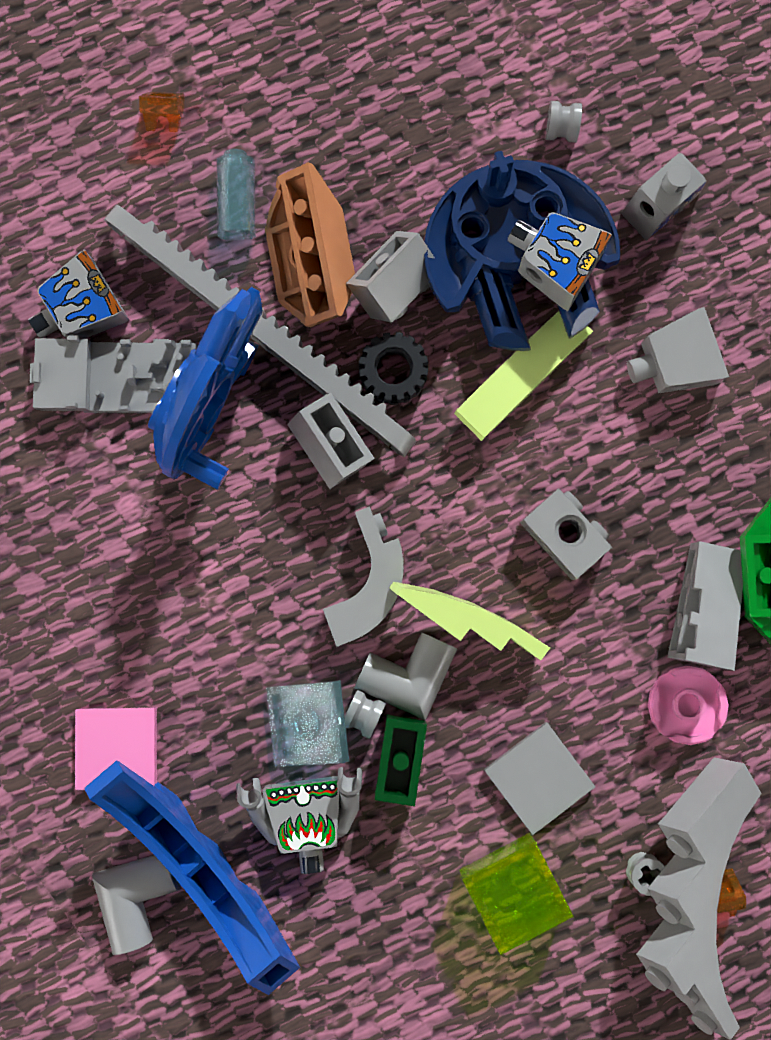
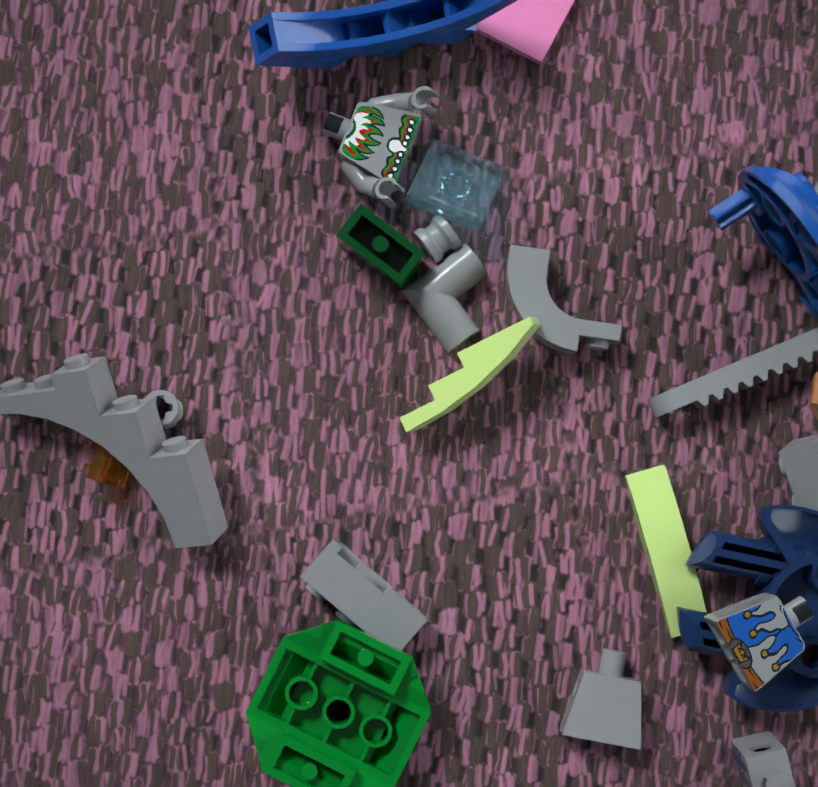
camera: 120 degrees right, 0 degrees up
(330, 440) = (698, 339): light grey brick -> none
(398, 345) = (758, 429): black tyre -> none
(517, 893) = (211, 288): clear neon green piece -> none
(539, 778) = (295, 363): light grey tile -> none
(571, 557) = (518, 491): light grey brick -> none
(674, 698) = (300, 528): bright pink tile -> none

